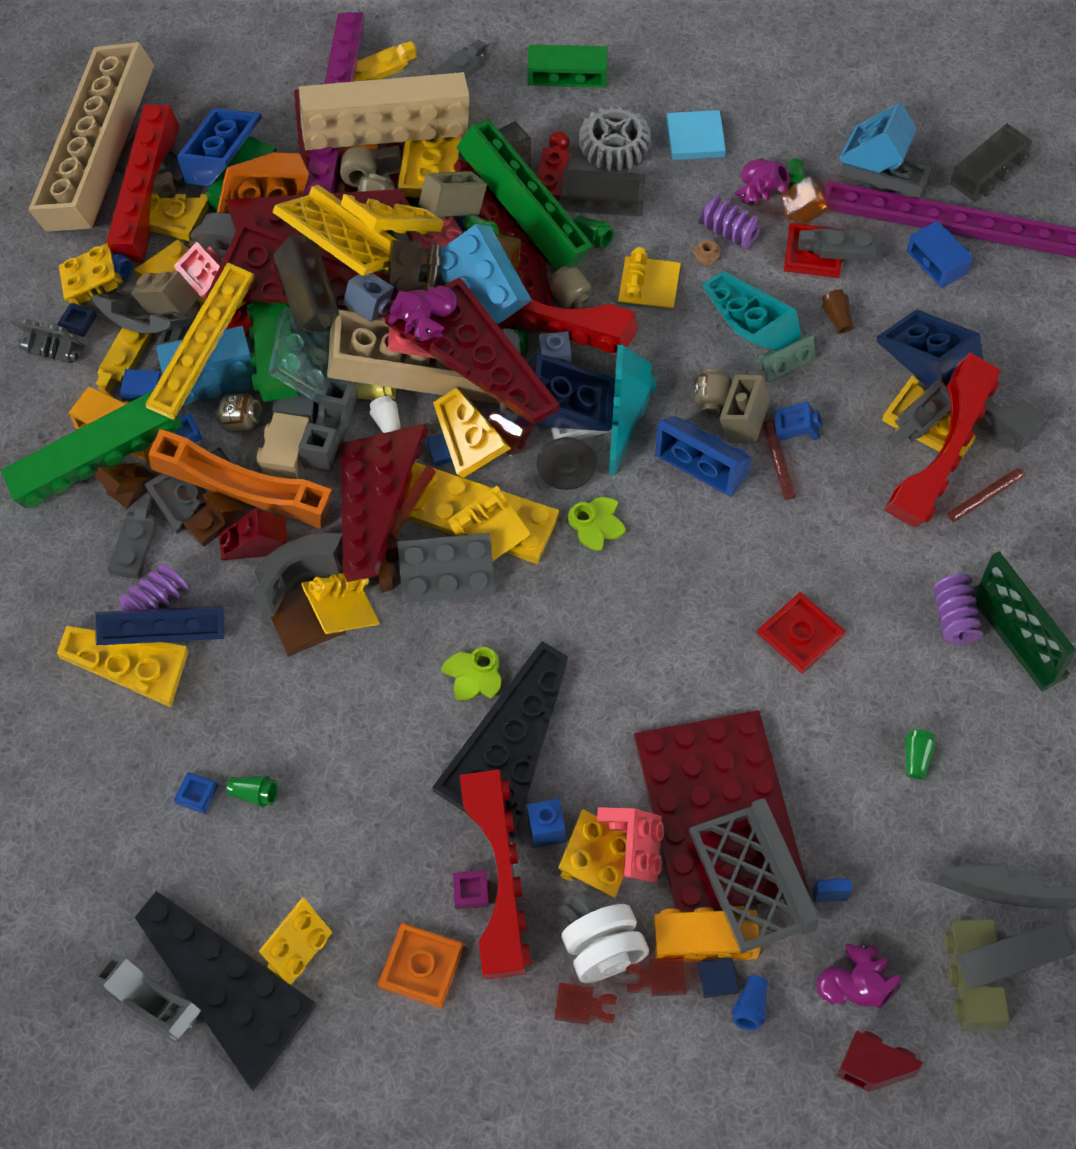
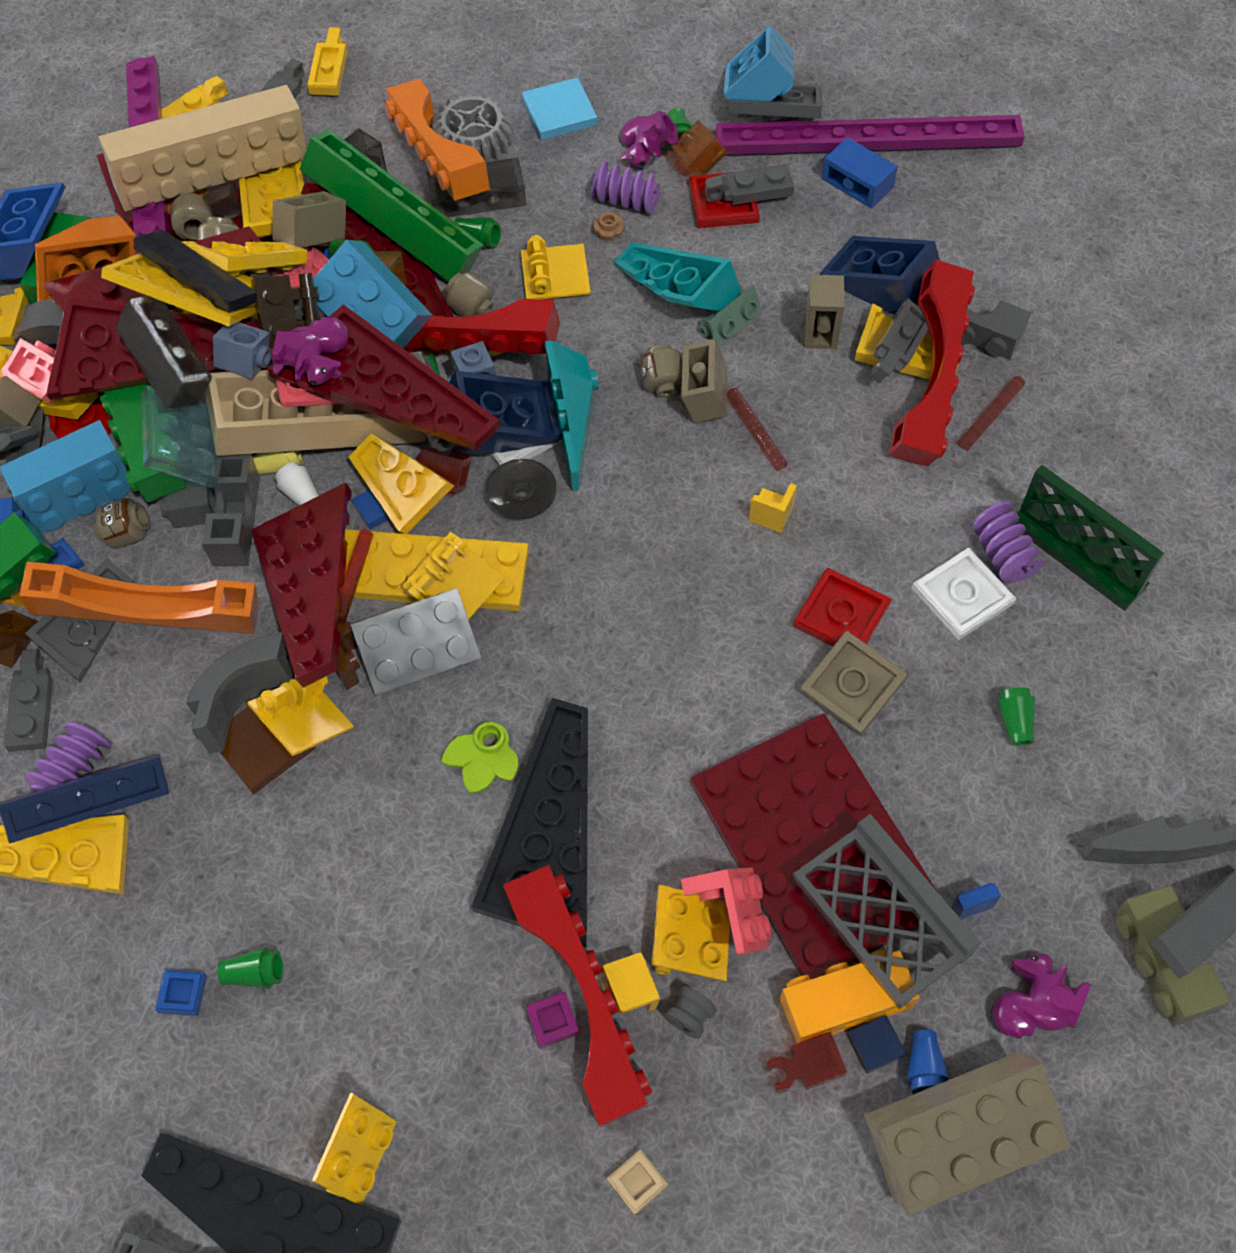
camera: 15 degrees left, 0 degrees up
(200, 341) = (50, 449): yellow tile -> none
(215, 517) = (122, 652): reddish brown slope -> none
(253, 536) = (174, 661): dark red slope -> none
(280, 451) = (181, 552): tan brick -> none
(347, 222) = (195, 270): none -> black tile
(421, 965) = (518, 1132): orange tile -> none
(501, 1027) = (637, 1182): none -> tan tile
(508, 51) = (328, 65): none -> yellow hinge
(538, 878) = (630, 983): none -> yellow panel
(546, 823) = (620, 913): blue brick -> none
(553, 162) = (412, 171): red plate -> none
(567, 66) = (397, 64): green brick -> none
(577, 1003) = (721, 1126): clear red plate -> none
(588, 171) = (456, 165): none -> orange arch
(600, 523) = (579, 547): lime plate -> none
(604, 943) = (735, 1042): white wheel -> none
(701, 454) = (671, 443): blue slope -> none
(764, 1058) = (967, 1131): none -> dark tan brick
(770, 531) = (772, 509): none -> yellow panel
(790, 692) = (854, 683): none -> dark tan plate
(797, 420) = (764, 381): blue bracket -> none
(838, 310) = (770, 254): reddish brown cone -> none
(864, 373) = (824, 311): none -> dark tan brick
(874, 1064) = (1092, 1097): dark red slope -> none
(908, 642) = (963, 593): none -> white tile
(991, 162) = (882, 69): clear smoke brick -> none

